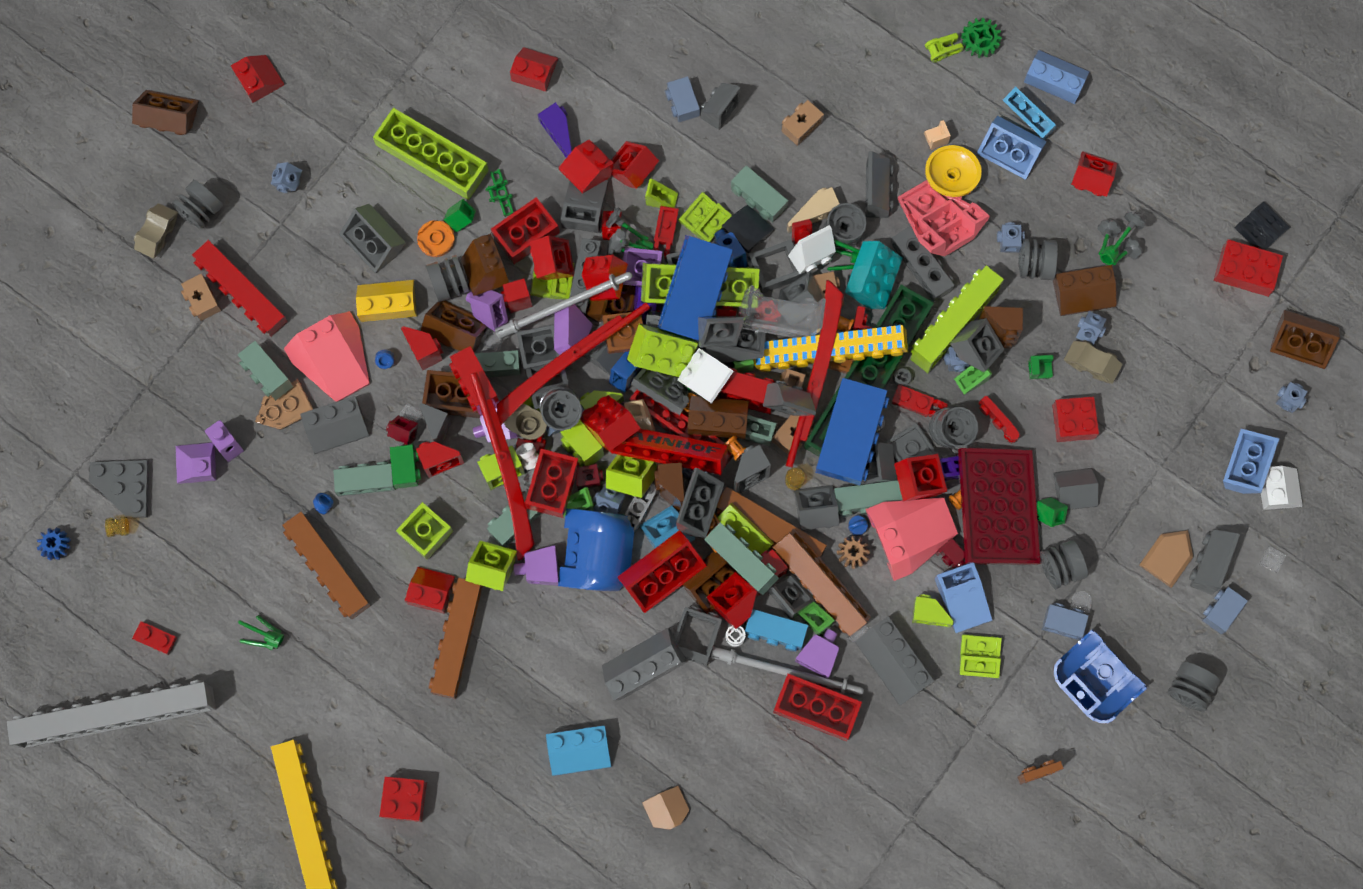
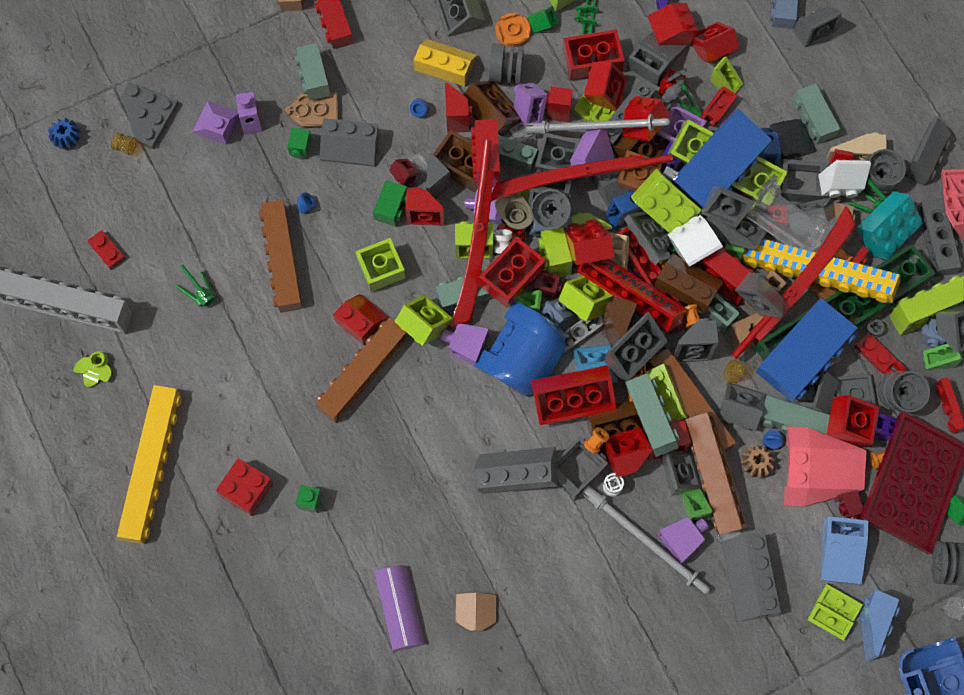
camera: 25 degrees right, 5 degrees down
(204, 759) = (92, 371): none -> lime plate
(287, 447) = (299, 142): none -> green brick
(331, 355) = (376, 84): coral wedge -> none
(363, 479) = (349, 198): sand green brick -> none
(467, 781) = (308, 499): none -> green brick
(483, 265) = (543, 66): reddish brown slope -> none
(578, 750) = (421, 519): dark azure slope -> none
(598, 839) = (399, 608): none -> medium lavender brick
(702, 604) = (596, 440): none -> orange bush
(704, 217) = (759, 110): lime slope -> none
(776, 630) = (653, 497): dark azure brick -> none
(799, 131) = (883, 71): medium nougat brick -> none
(817, 707) = (658, 584): red brick -> none
(930, 612) = (805, 549): lime slope -> none
(1019, 648) = (876, 622): none -> medium blue slope
(1064, 621) = (931, 618): sand blue brick -> none

